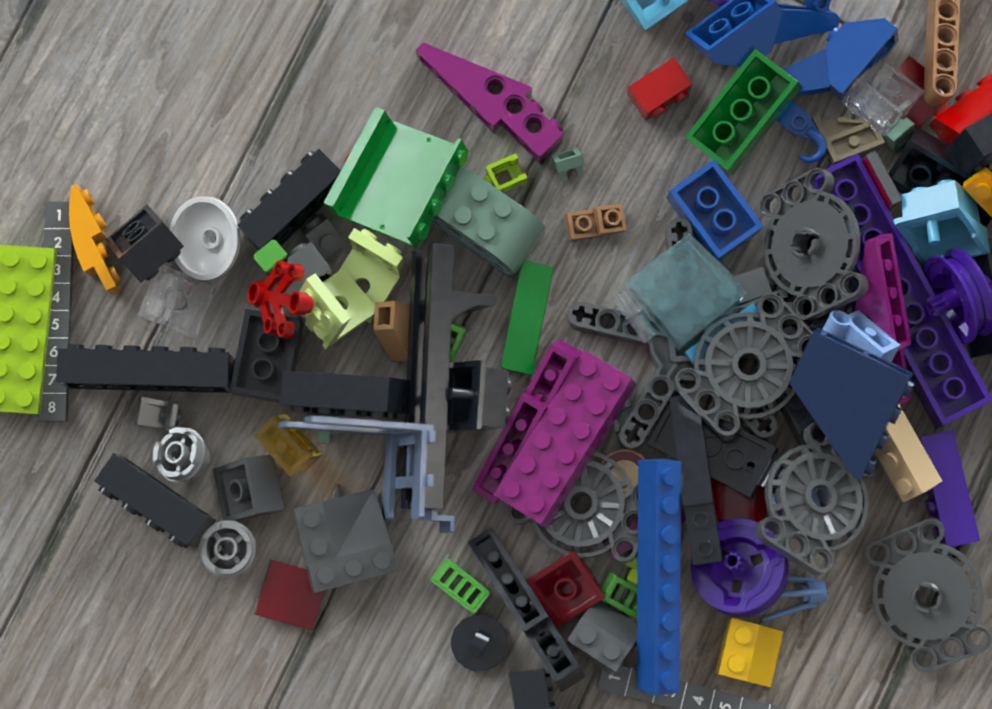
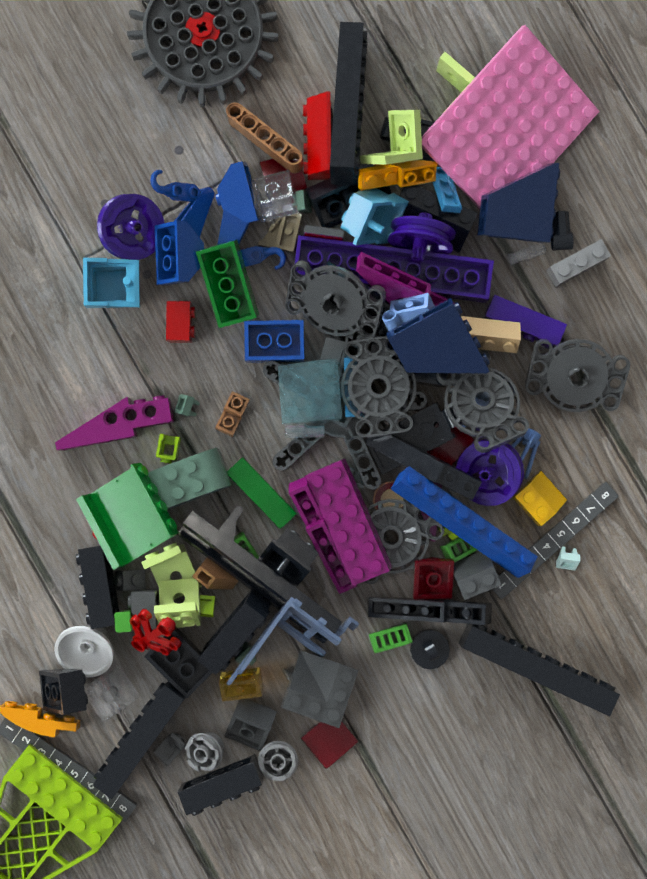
camera: 60 degrees left, 5 degrees up
(353, 343) = (207, 605): none -> lime tile

